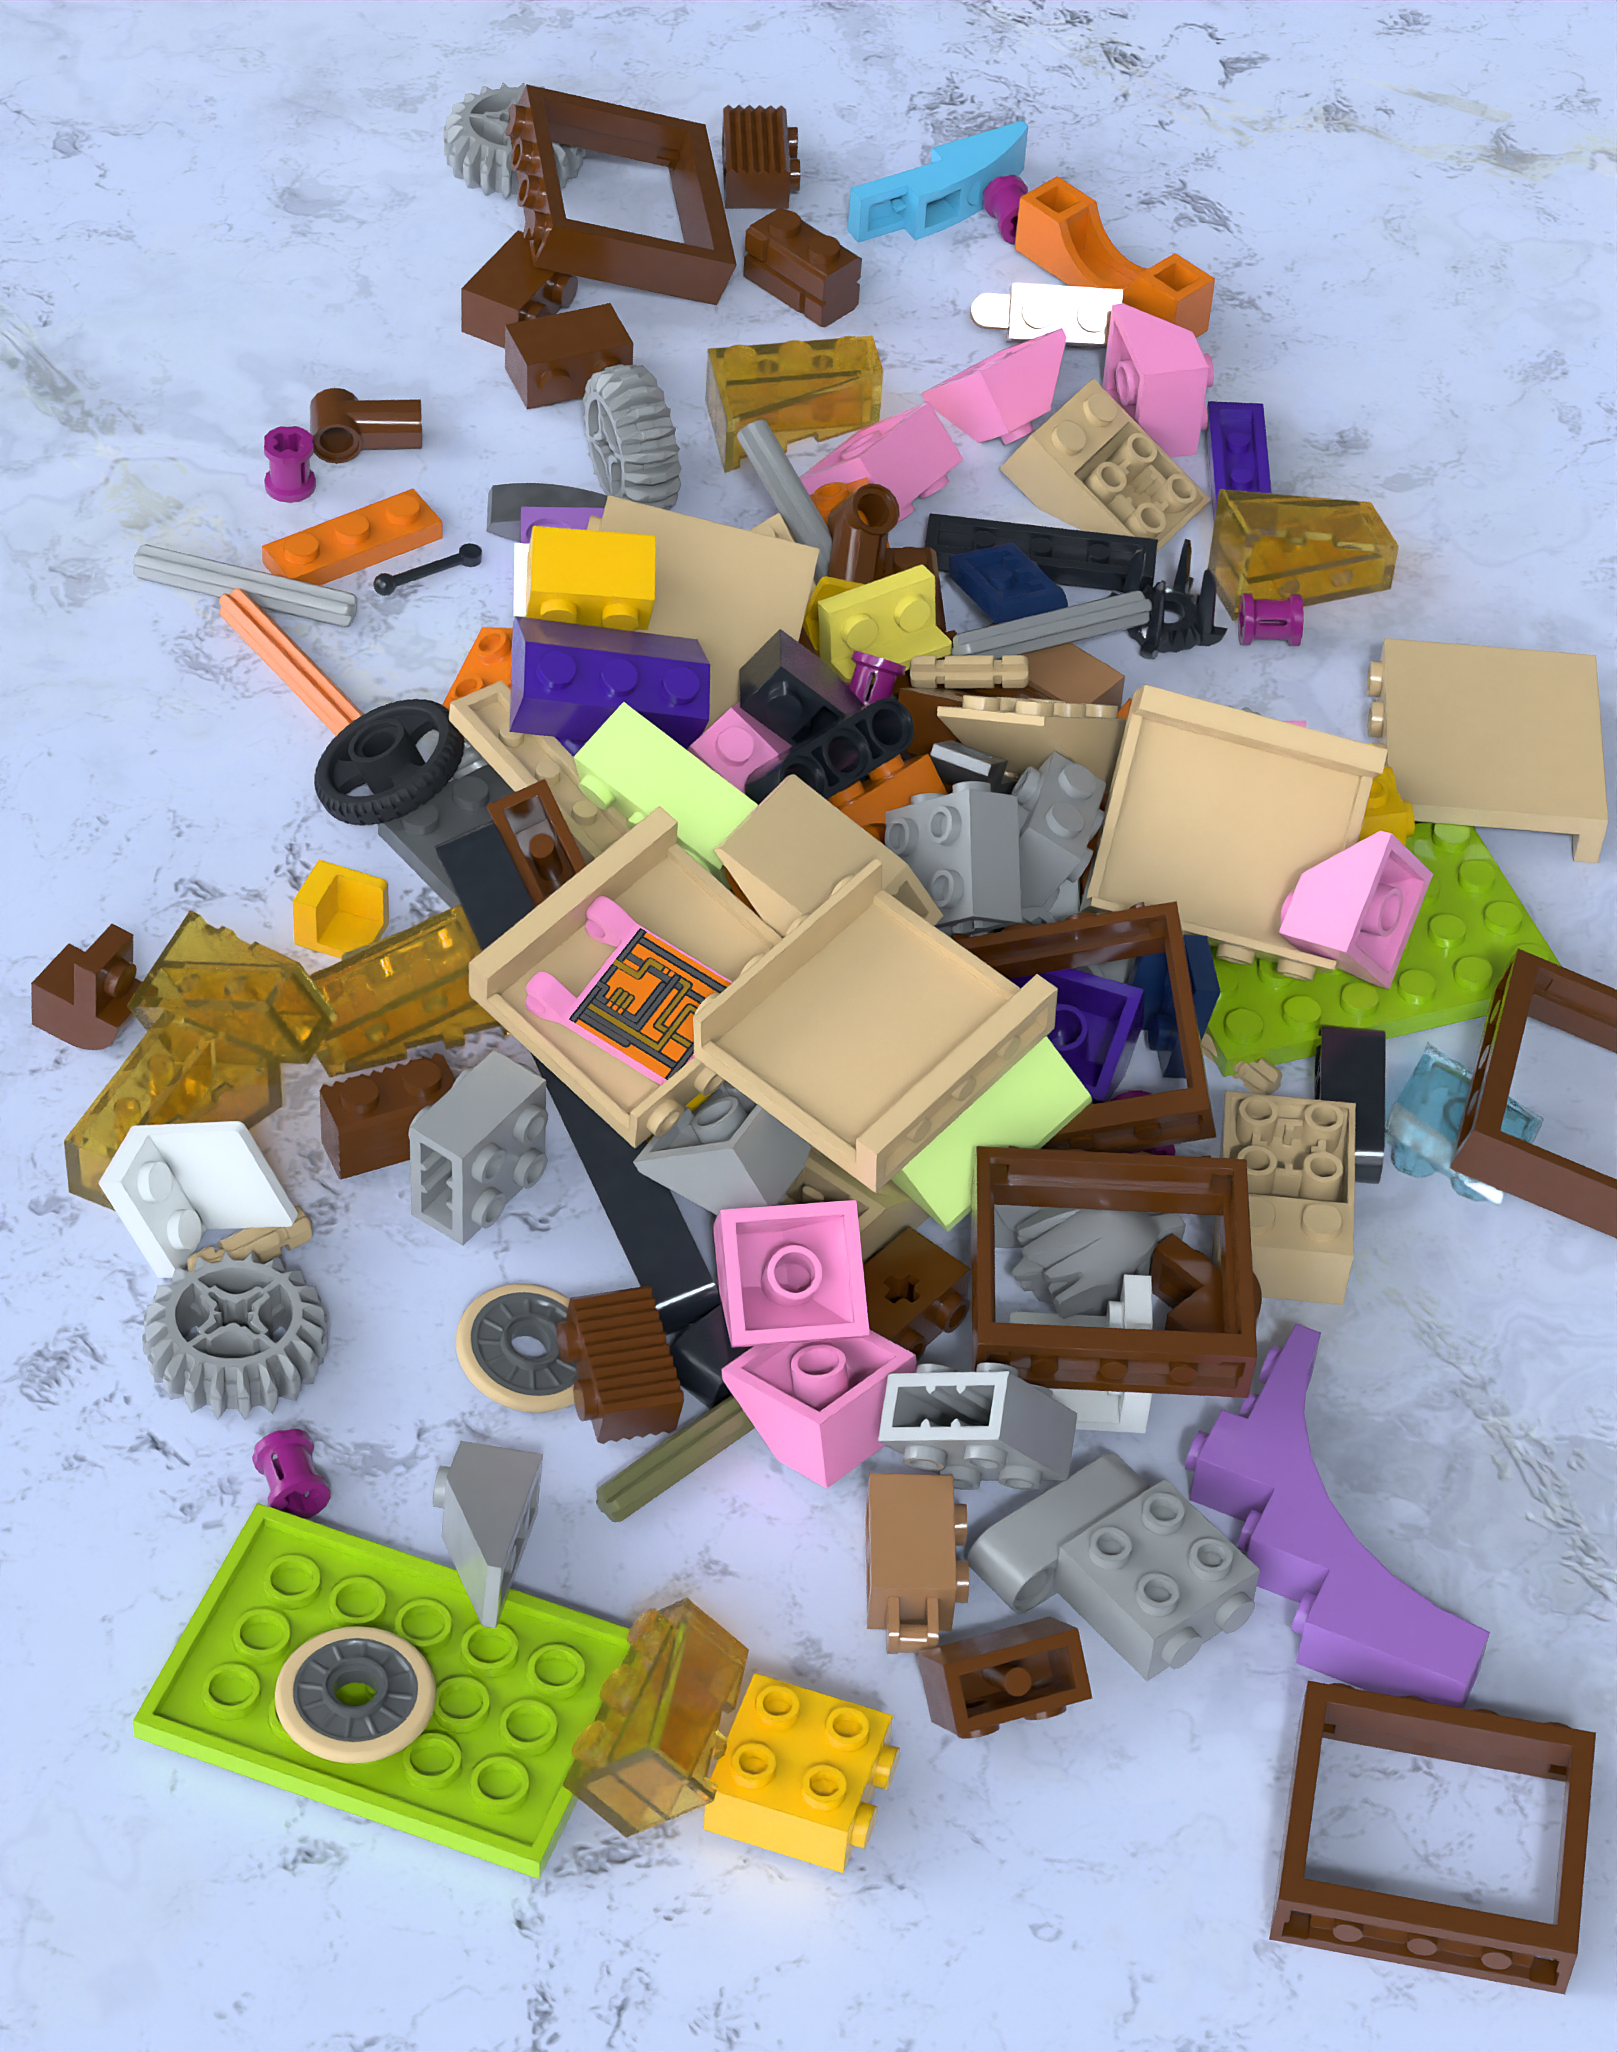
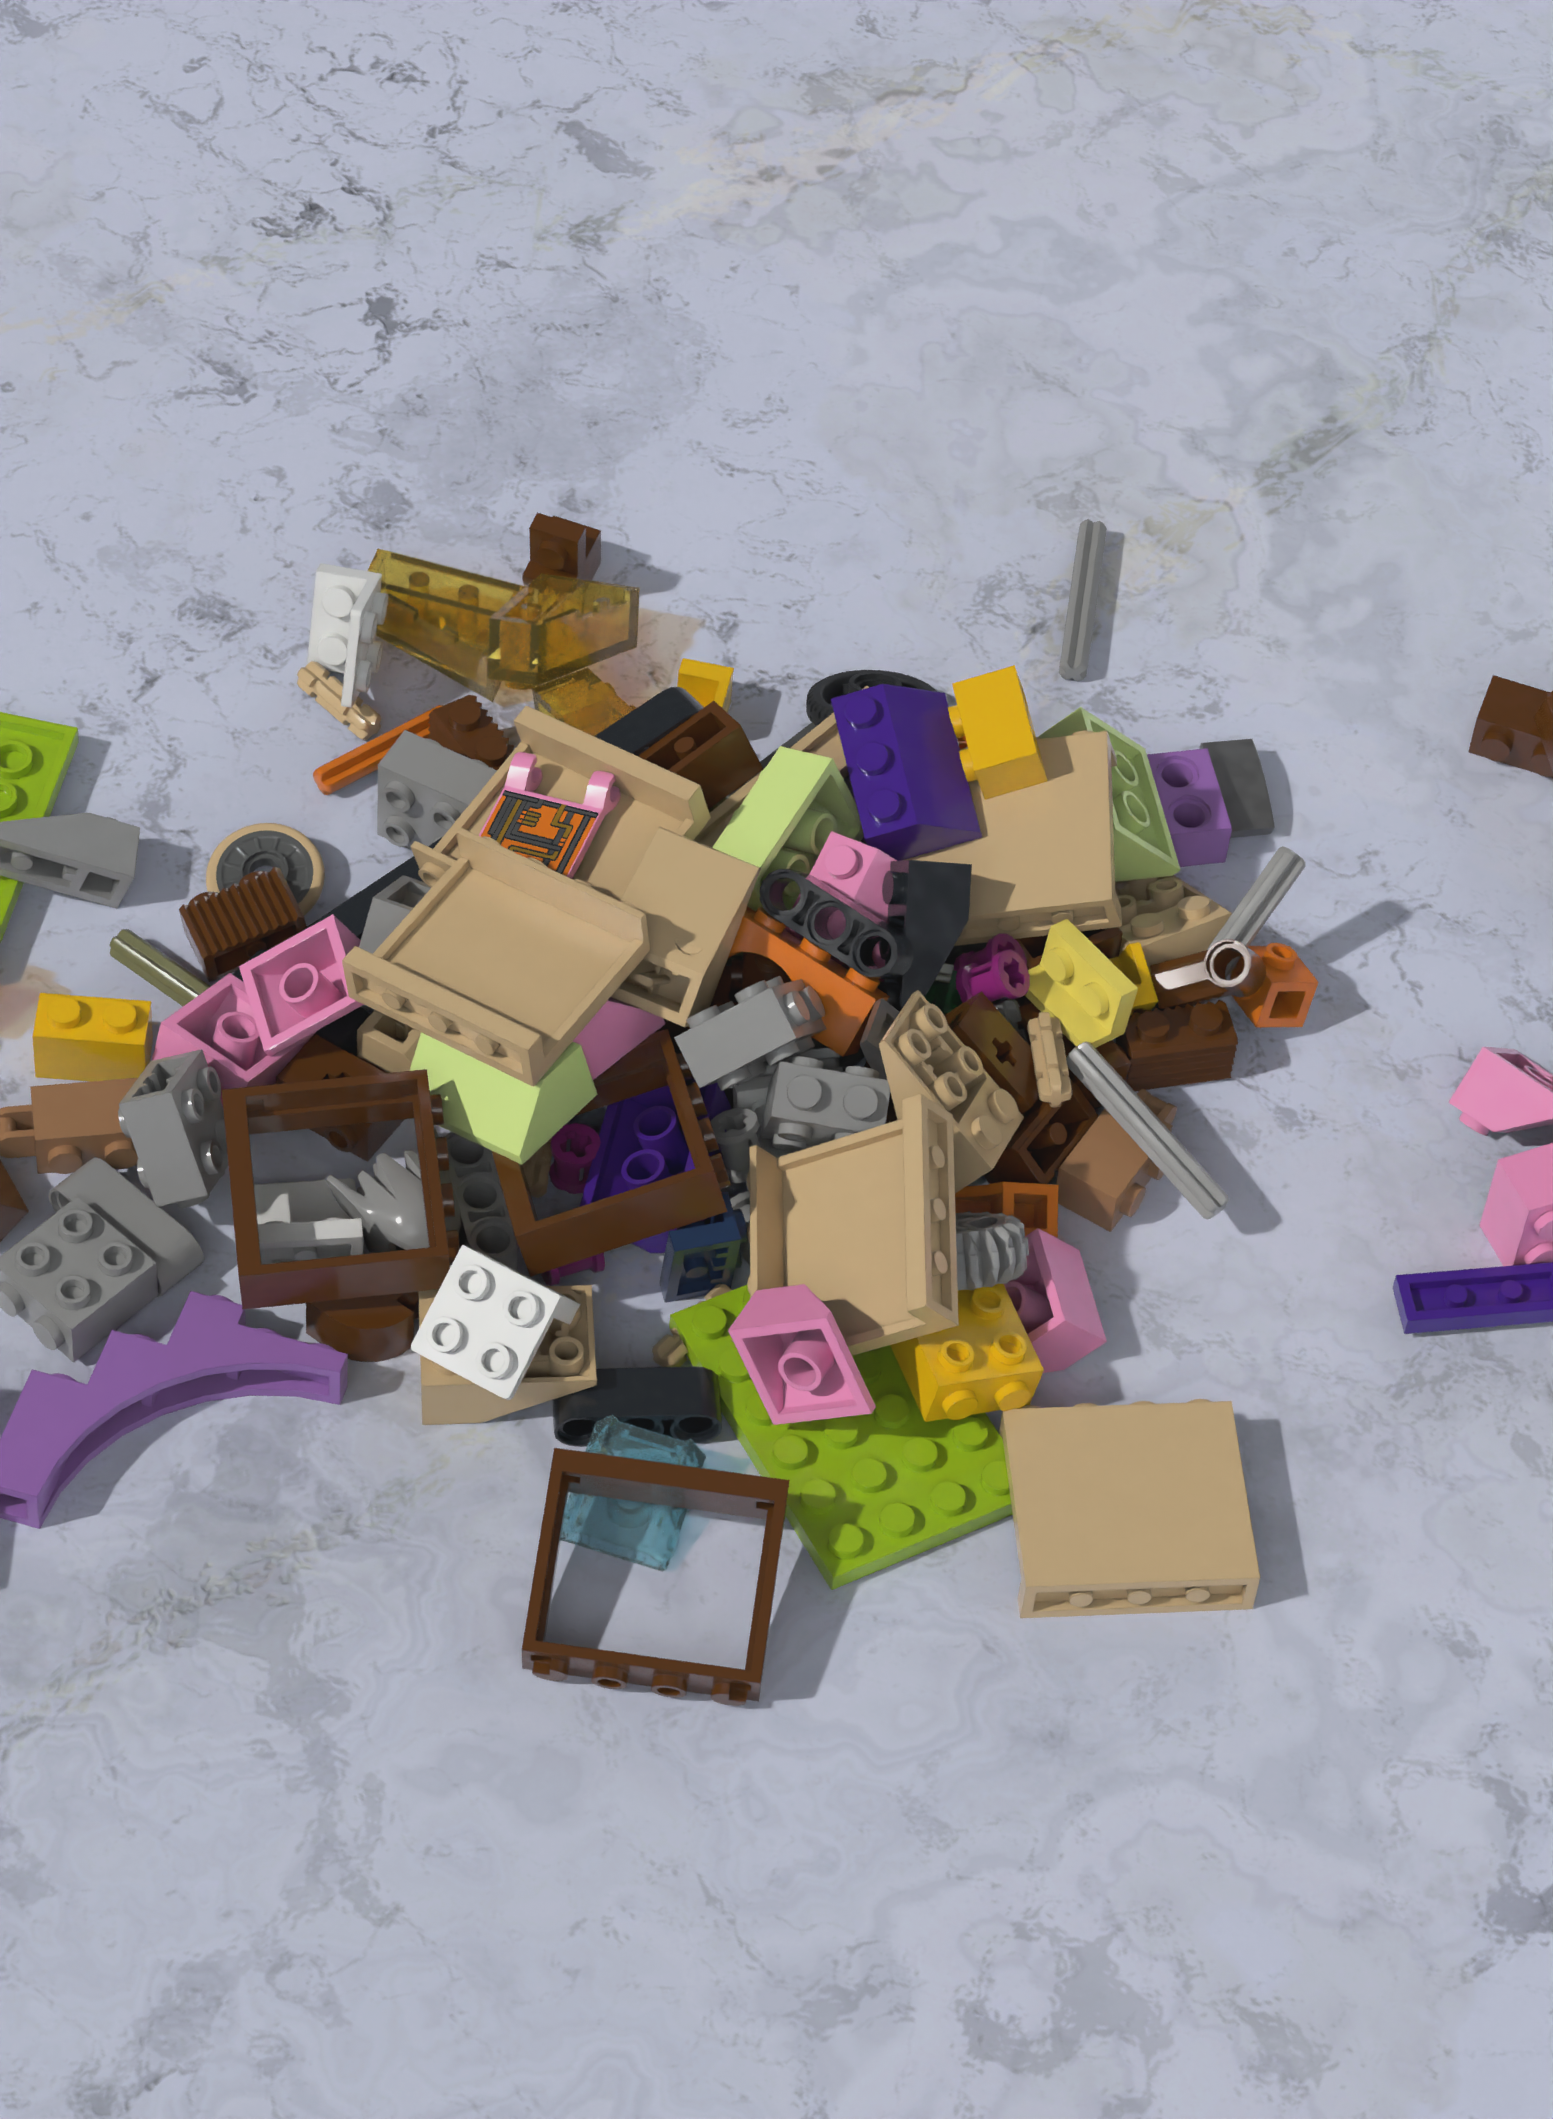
camera: 80 degrees right, 5 degrees up
(234, 1354) = (240, 684): light grey gear -> none
(288, 660) = (999, 638): axle -> none
(289, 464) = (1236, 601): magenta bush -> none
(291, 1473) = (113, 748): magenta bush -> none
(343, 1214) = (366, 757): none -> orange axle
(347, 425) = (1306, 638): reddish brown piece -> none
(354, 540) = (1164, 664): orange plate -> none
(468, 556) = (1118, 692): black hinge -> none
(560, 352) = (1441, 768): reddish brown brick -> none
(632, 436) = (1322, 811): light grey gear -> none
(780, 1533) = (91, 1037): none -> yellow brick
(795, 387) = (1448, 932): clear yellow wedge -> none
(901, 453) = (1370, 1016): bright pink slope -> none
(1005, 583) = (1216, 1109): dark blue bracket -> none
(1062, 554) = (1299, 1147): black plate -> none
(1104, 472) = (1423, 1188): tan slope -> none
(1197, 611) = (1239, 1272): black piece -> none
(1280, 619) = (1260, 1329): magenta bush -> none
(1298, 547) = (1350, 1335): clear yellow wedge -> none
(1309, 1154) = (489, 1322): none -> white bracket

